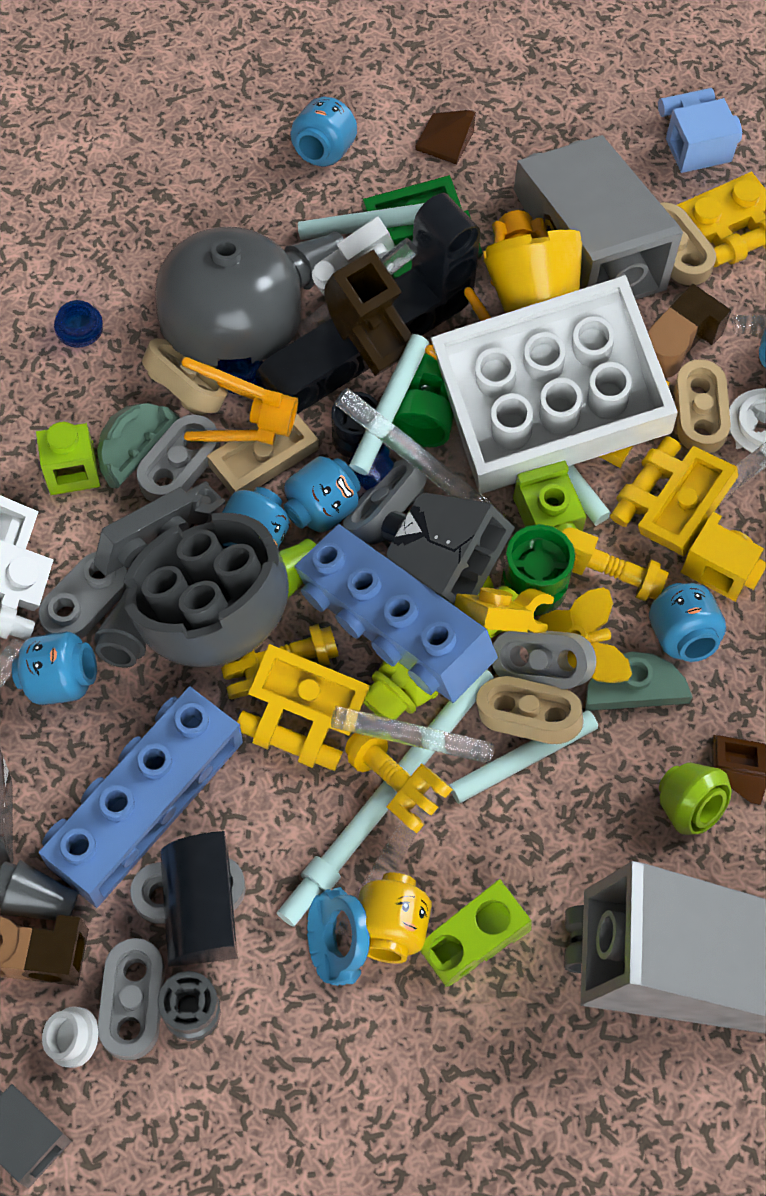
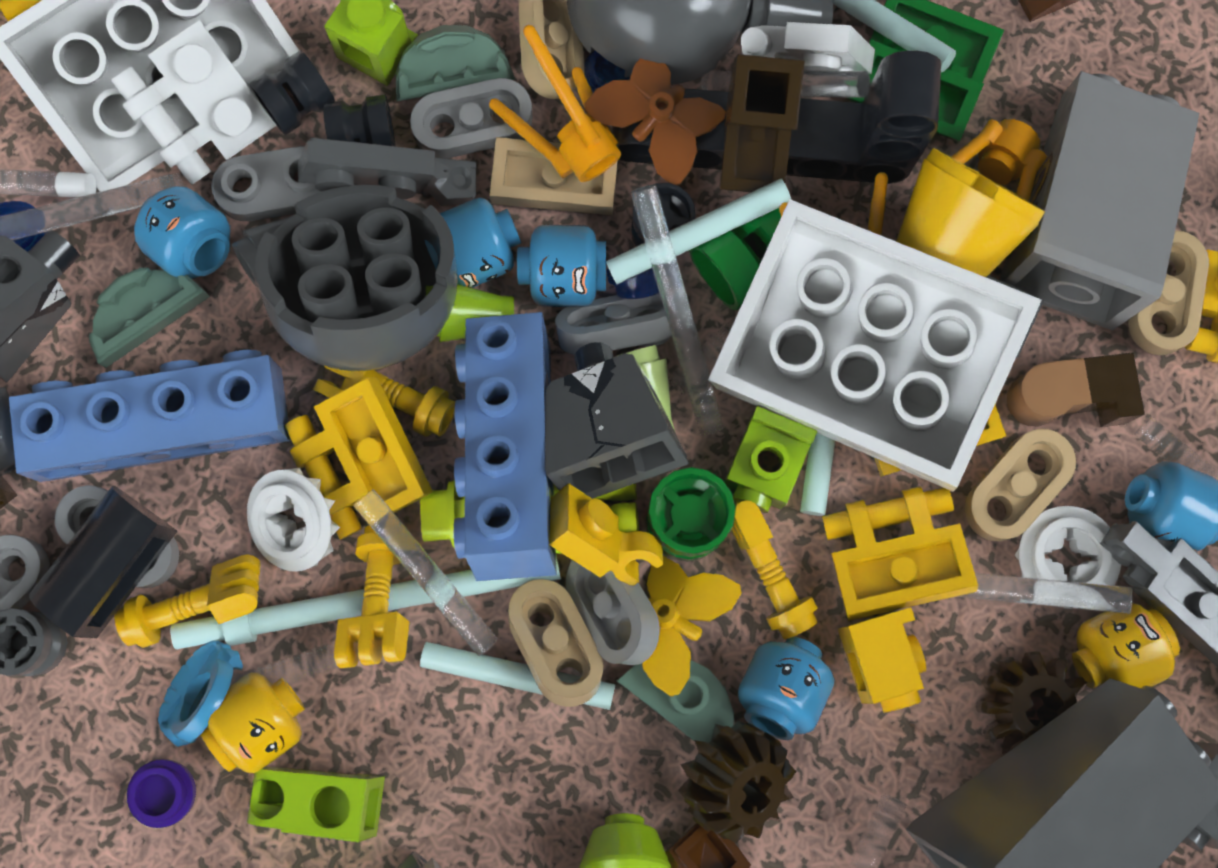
camera: 40 degrees right, 15 degrees up
(48, 528) = (302, 82): none -> black wheel
(66, 740) = (139, 308): none -> sand green plate
(115, 504) = (360, 123): none -> black wheel
(292, 802) = (276, 534): none -> white gear
(295, 853) = (227, 596): none -> yellow hinge
(313, 357) = (658, 107): none -> dark orange piece
(371, 1023) = (161, 793): none -> dark purple plate
(713, 692) = (737, 781): none -> dark brown gear

